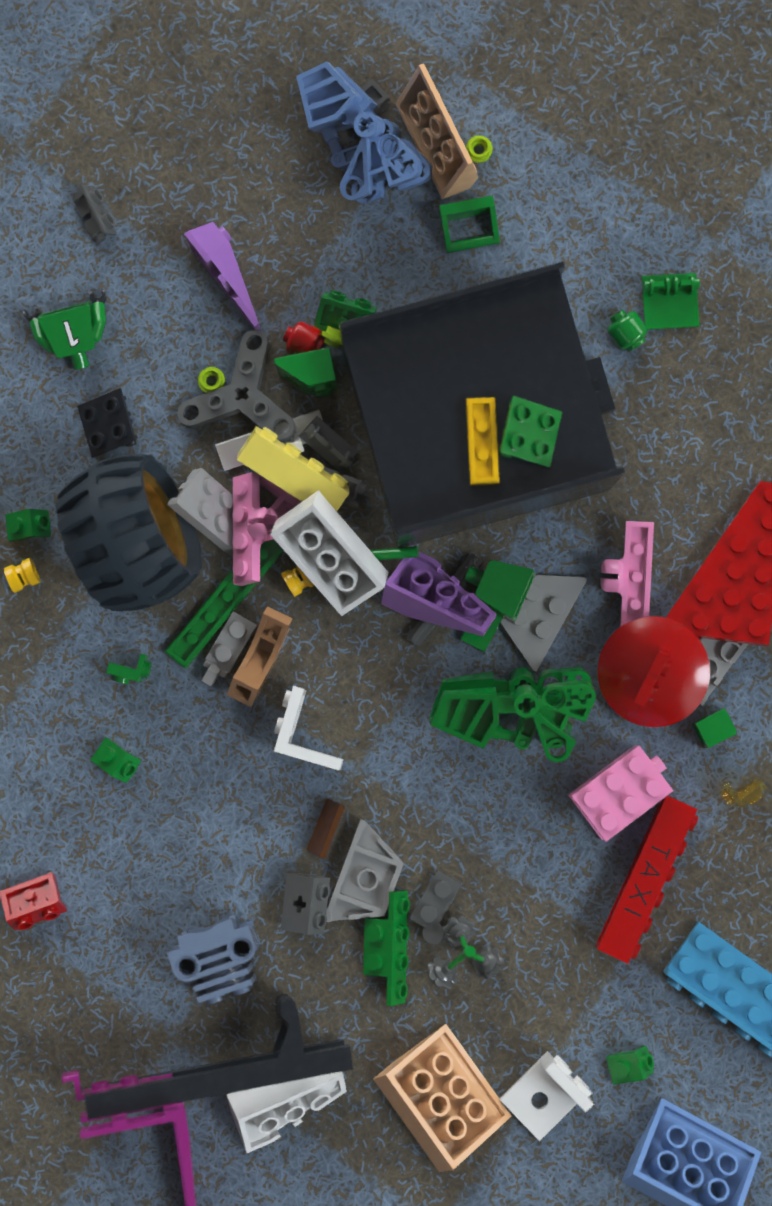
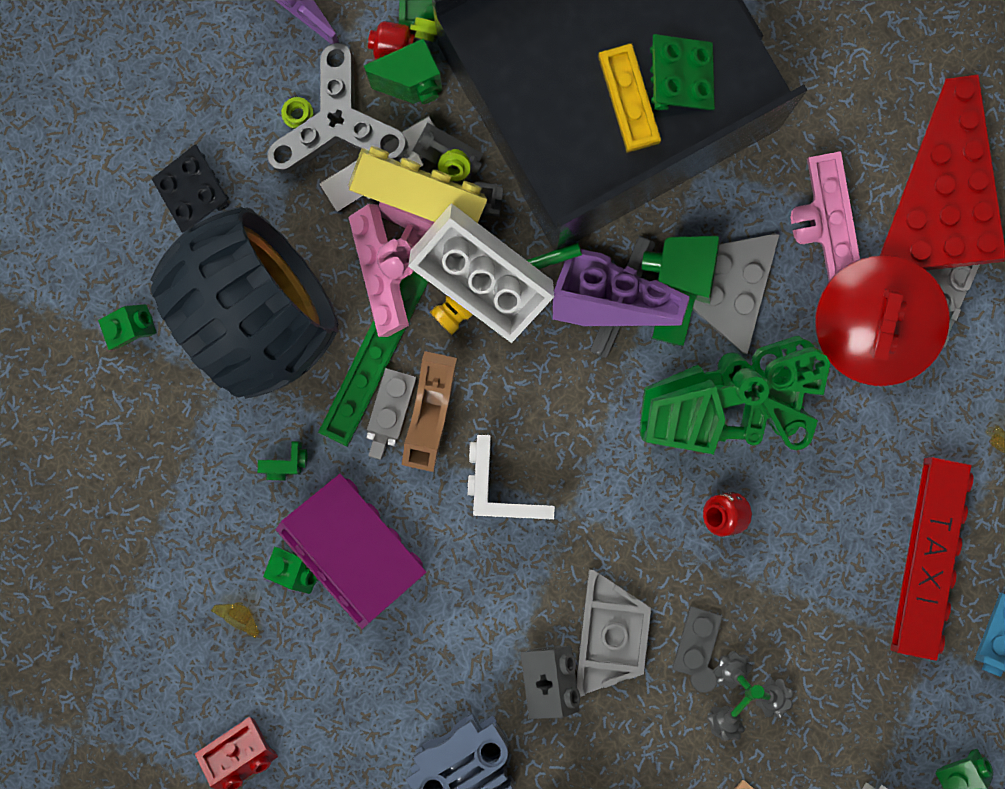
camera: 15 degrees left, 0 degrees up
(22, 575) = (133, 385): yellow wheel -> none
(61, 787) = (237, 616): none -> clear yellow piece
(70, 329) = (122, 92): green torso -> none
(168, 755) = (351, 550): none -> magenta panel
(207, 508) = (327, 256): light grey wing -> none
(325, 828) = (552, 590): reddish brown slope -> none
(334, 453) = (457, 158): none -> lime plate
(387, 947) = (654, 708): green bracket -> none
(485, 801) = (727, 514): none -> red head
(621, 792) = (879, 466): bright pink torso -> none
(714, 728) = (965, 369): green panel -> none

